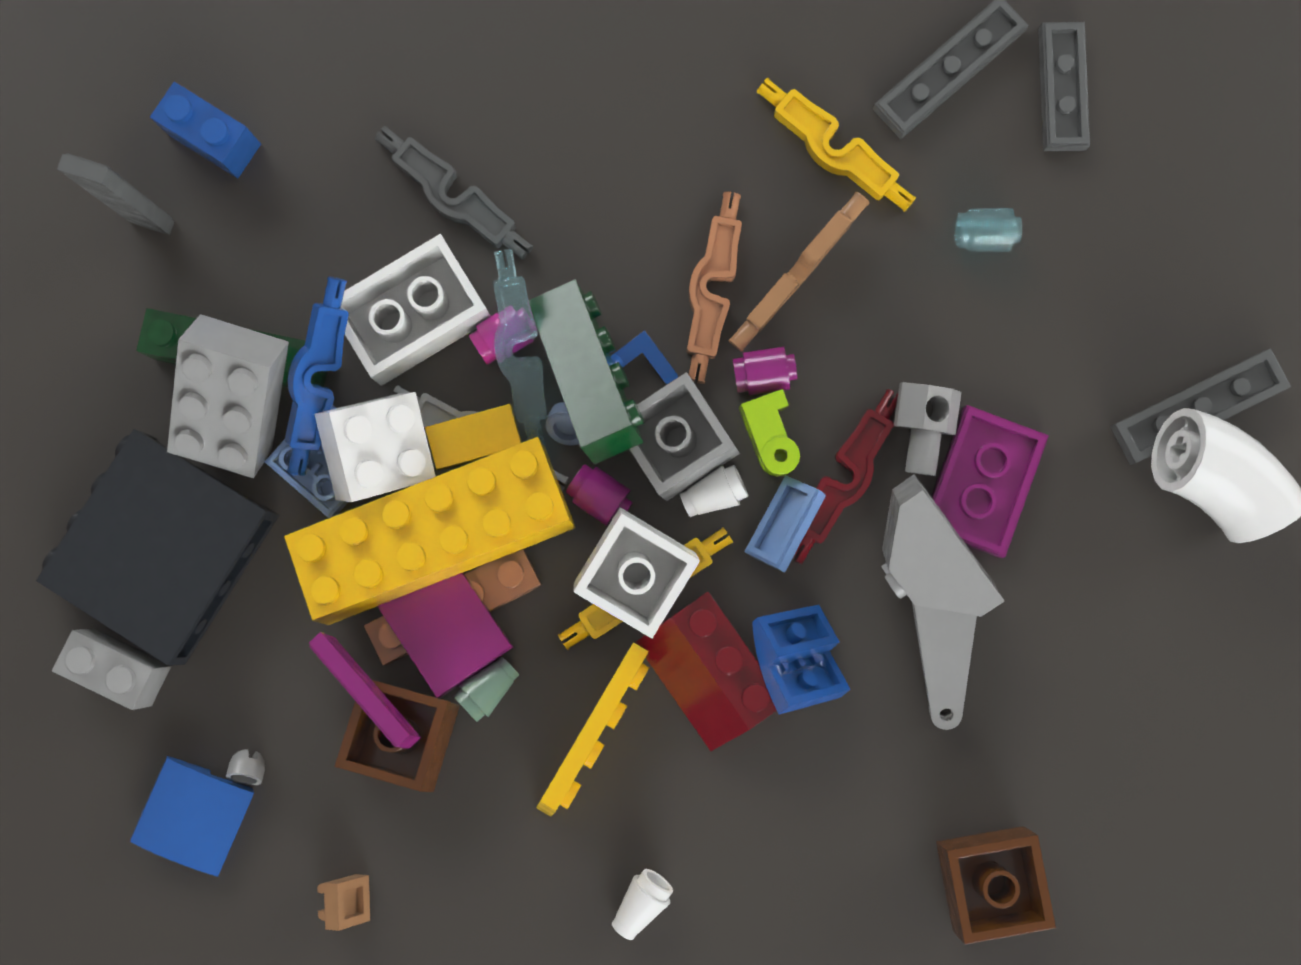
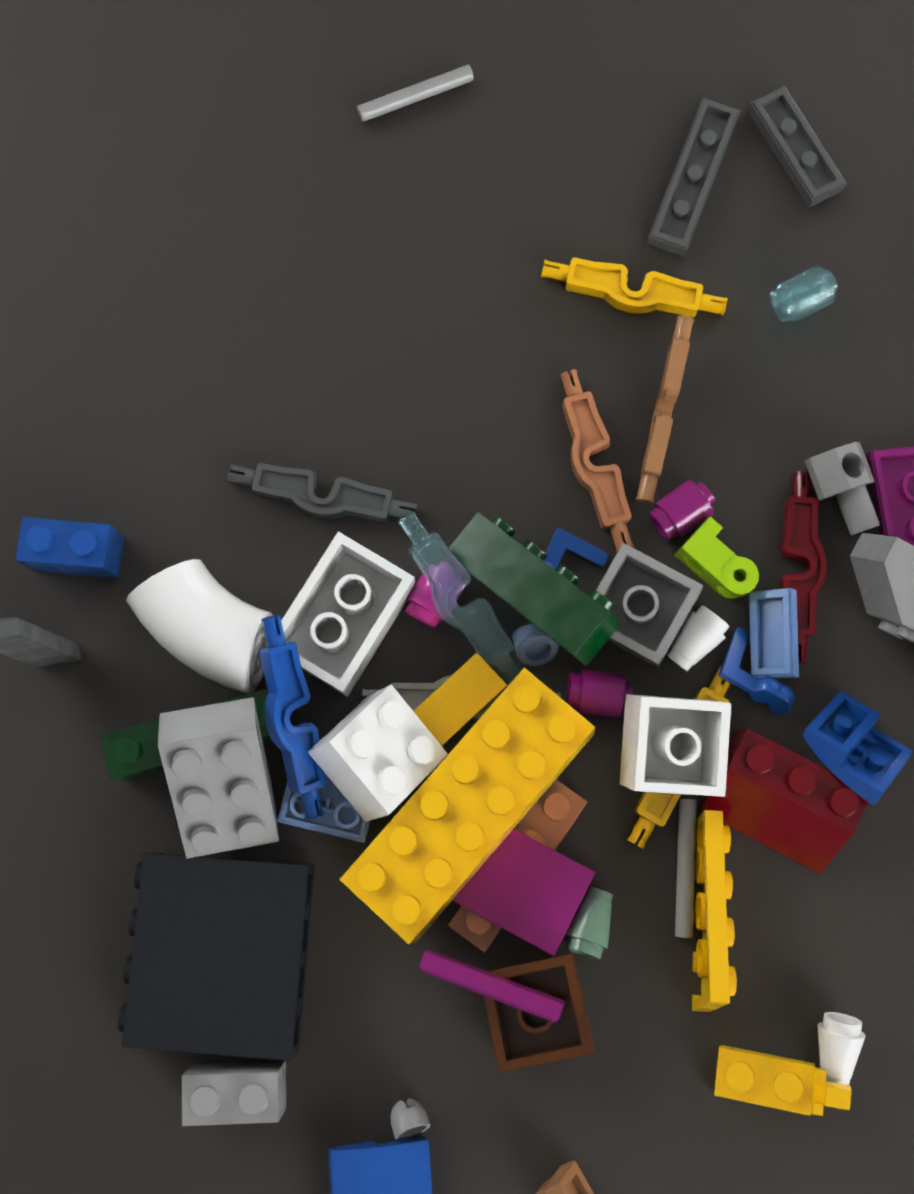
camera: 30 degrees left, 5 degrees down
(282, 254) = (203, 624): none -> white brick
(571, 902) = (777, 1082): none -> yellow hinge
(596, 685) = (685, 868): none -> light grey bar
(746, 567) = (763, 690): none -> blue piece

